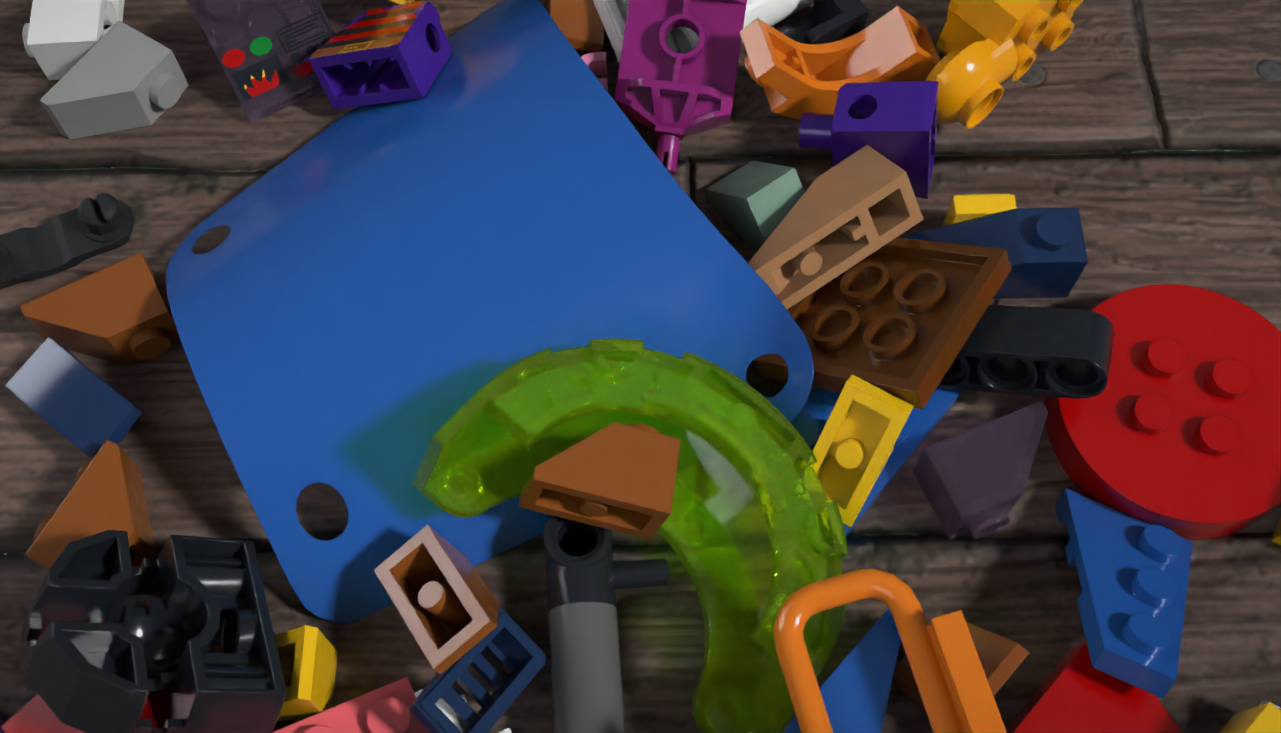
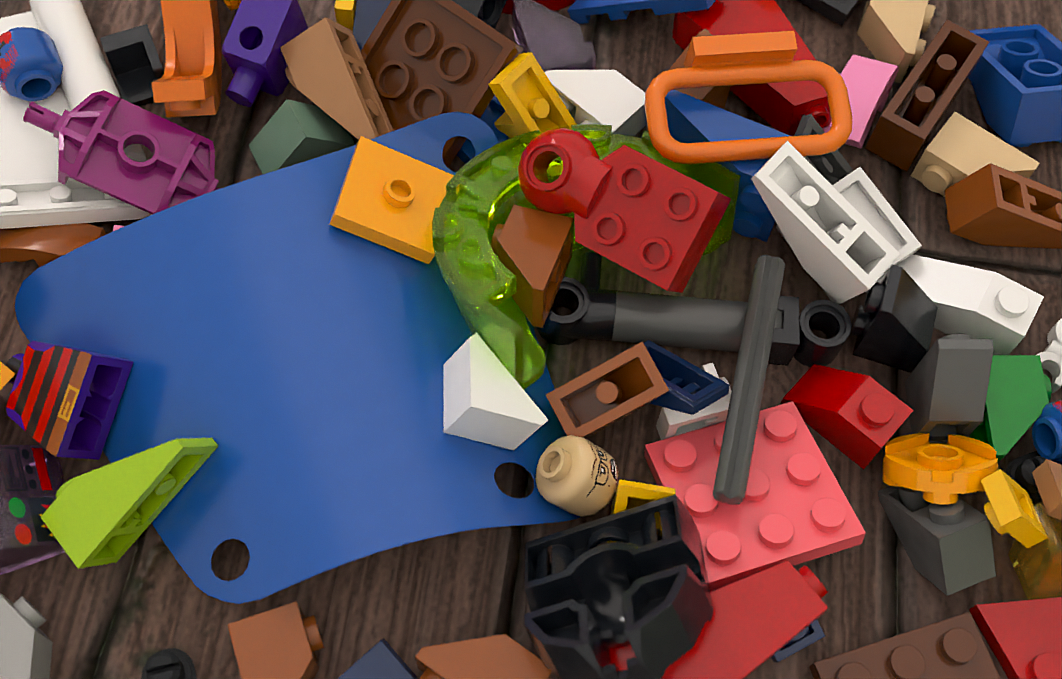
camera: 85 degrees left, 0 degrees up
(269, 127) = (110, 507): none -> lime slope
(336, 585) = (576, 475): none -> tan head
(392, 446) = (485, 399): none -> white slope
(658, 290) = (390, 199): none -> light orange plate
(689, 582) = (624, 205): none -> red brick
(910, 536) = (601, 99): none -> white slope

